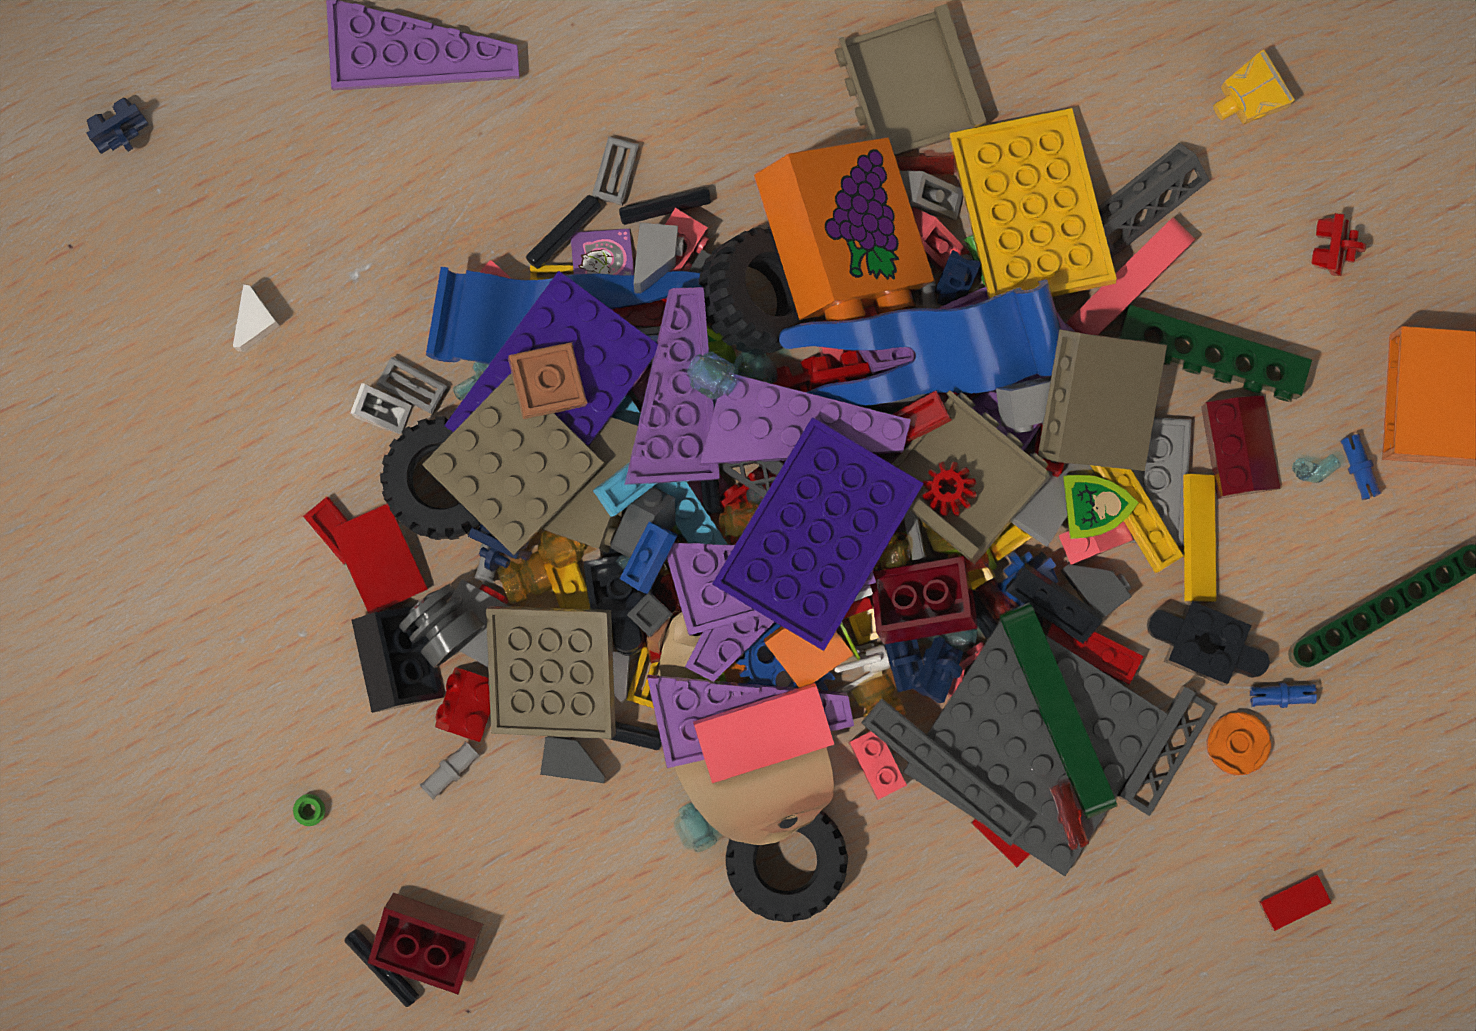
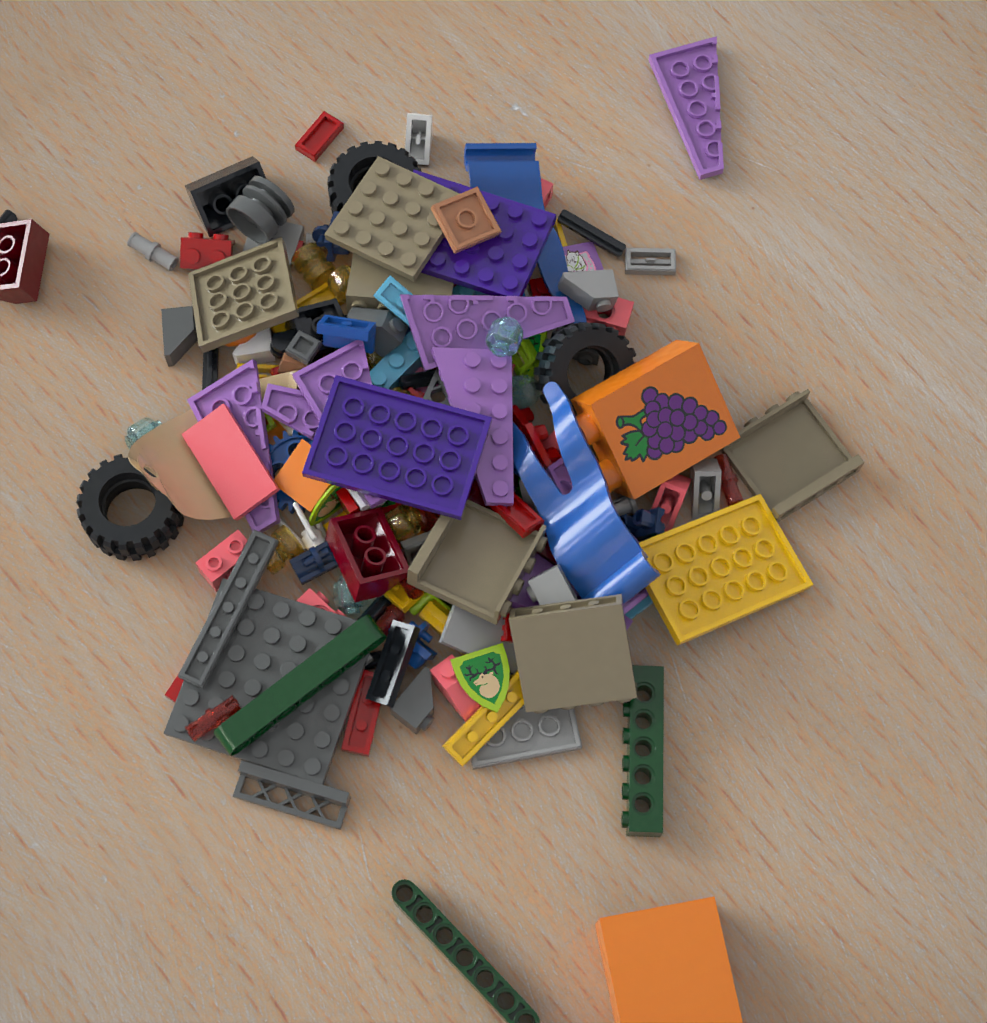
camera: 70 degrees right, 15 degrees down
(253, 320) = (461, 44): white slope -> none
(301, 817) = (102, 159): bright green plate -> none
(378, 559) = (303, 164): red tile -> none
(436, 398) = (449, 142): light grey tile -> none
(664, 205) = (640, 309): black axle -> none
(939, 670) = (313, 582): dark blue hips -> none
(949, 500) = (463, 545): red gear -> none
(1132, 279) = (686, 668): coral beam -> none
(1144, 193) = (765, 660): dark grey fence -> none
(1199, 538) = (482, 778): yellow tile -> none
(1207, 643) = (392, 806): black brick -> none
(1238, 743) = (312, 858): orange tile -> none
(1240, 446) = (571, 794): dark red slope -> none
(1254, 91) = (877, 729): yellow torso -> none
(1283, 695) = (364, 885): blue pin -> none
(1295, 902) = (183, 942): red tile -> none
(1315, 472) = (566, 865): clear light blue arm -> none
(1337, 231) = (770, 836): red hips -> none
(1360, 467) = (582, 904): blue pin -> none

